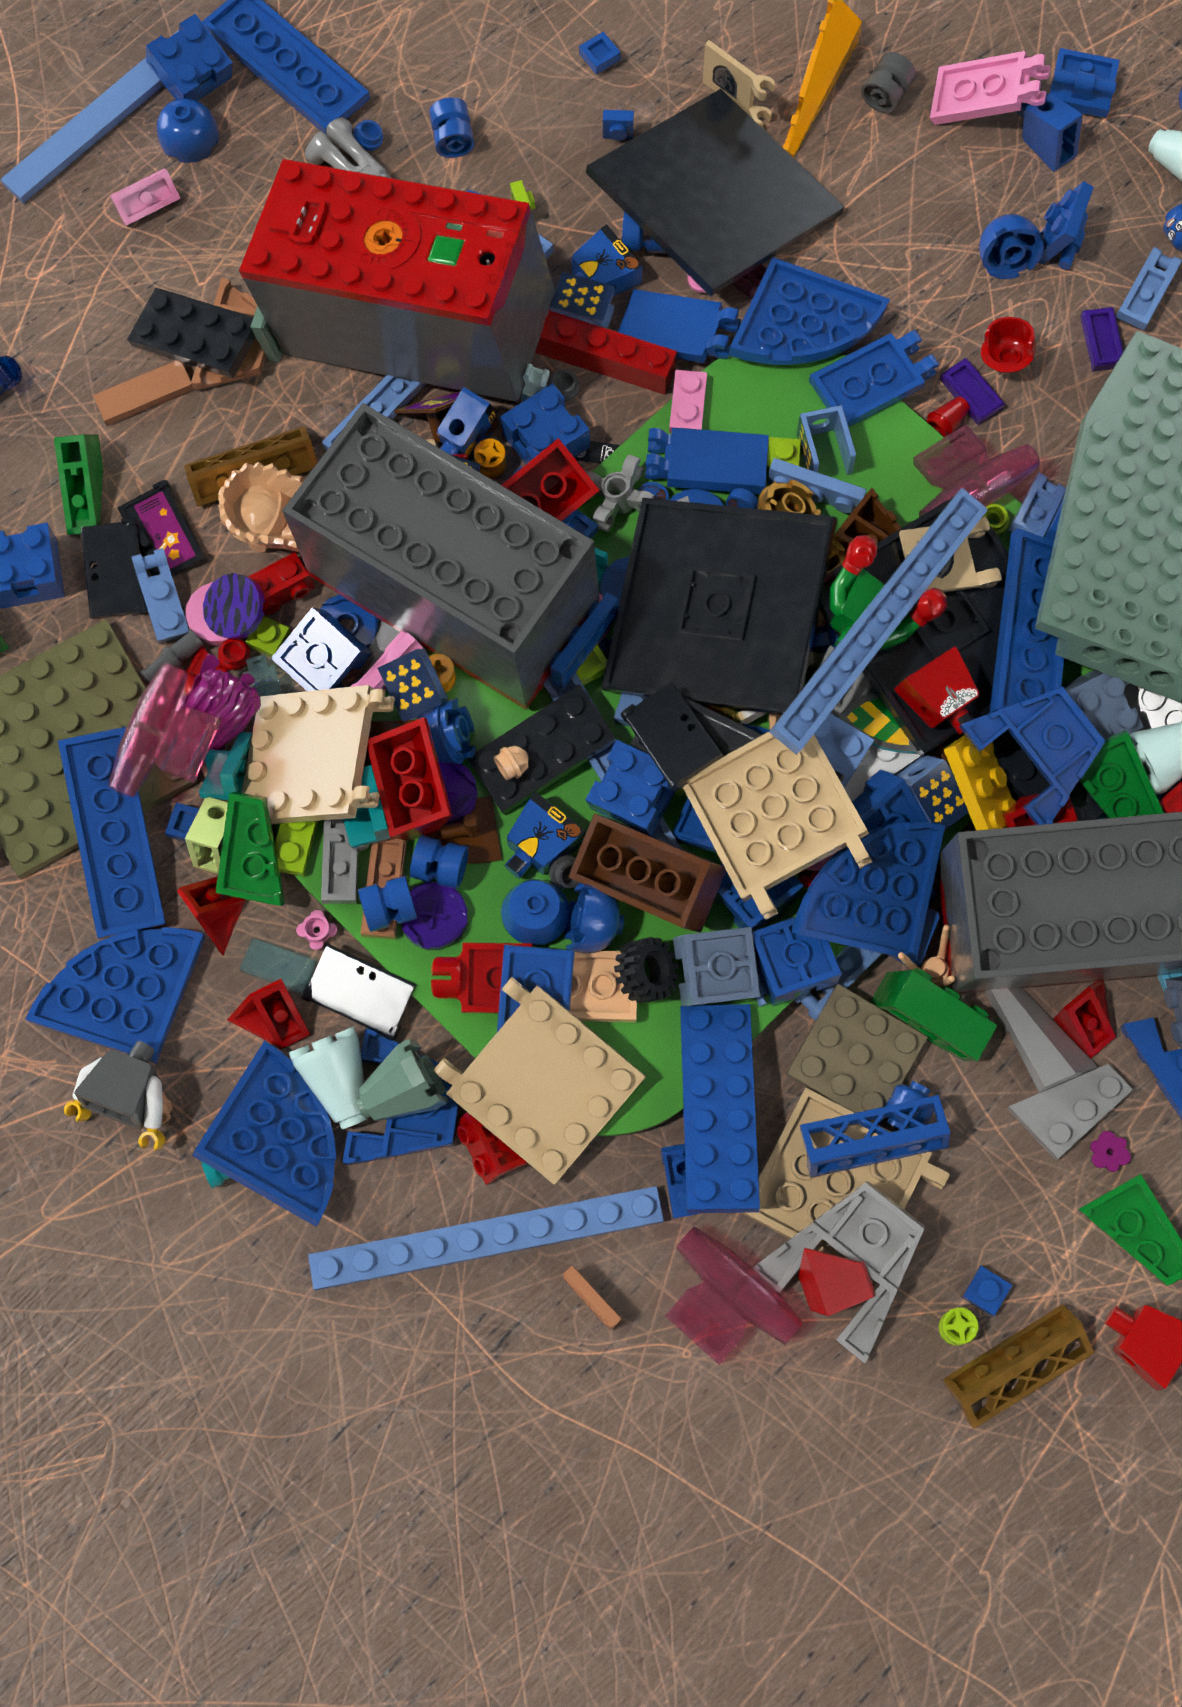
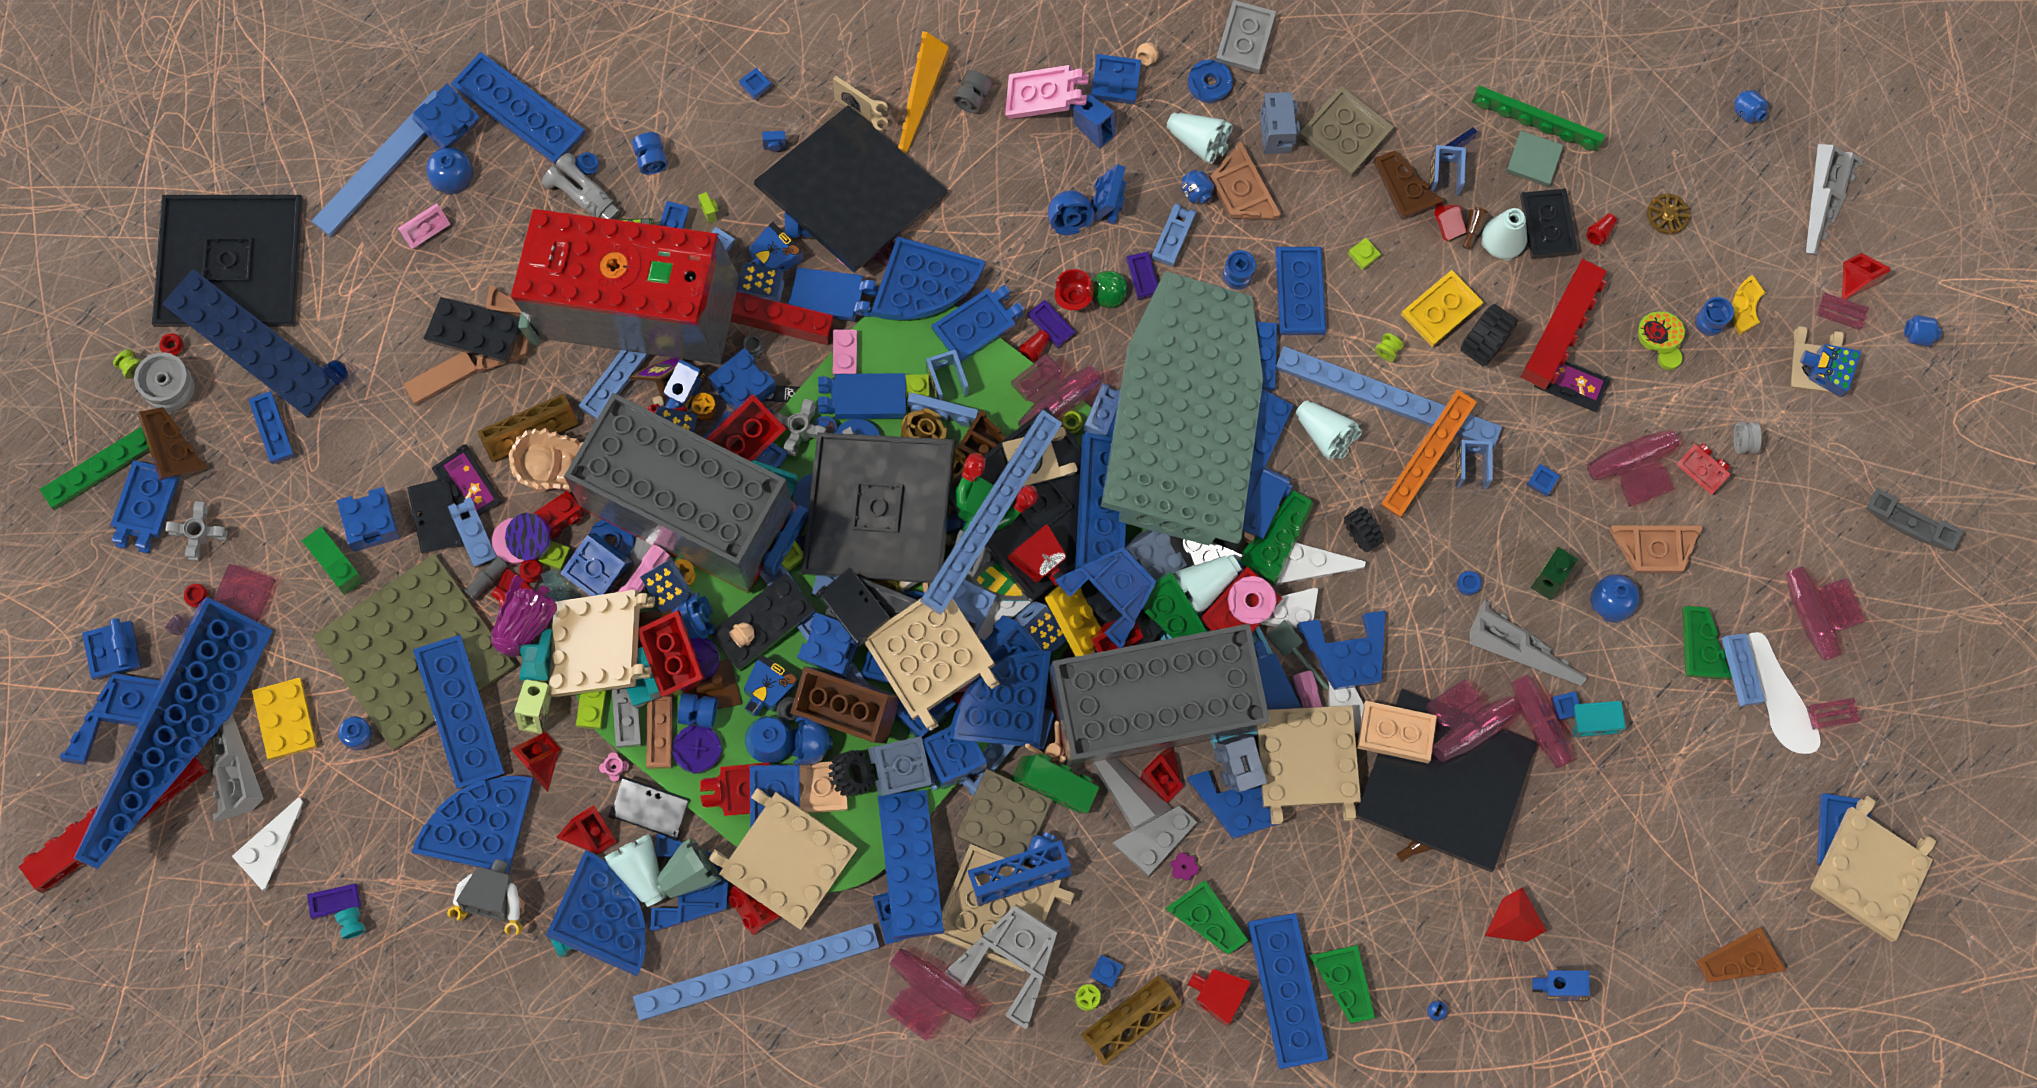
camera: 15 degrees left, 0 degrees up
(80, 479) = (402, 451): green slope -> none
(162, 735) = (489, 639): clear pink plate -> none
(181, 821) = (508, 698): blue plate -> none
(248, 852) = (560, 717): green wing -> none
(274, 963) = (588, 794): clear light blue tile -> none
(387, 903) = (664, 744): blue wheel -> none
(534, 380) = (731, 348): light aqua plate -> none
(591, 1298) = (835, 1006): nougat tile -> none
(742, 498) = (890, 426): blue tile -> none
(833, 1282) = (999, 975): red slope -> none
(1056, 351) = (1109, 289): none -> green hair
(1128, 52) = (1147, 53): none -> light nougat plate

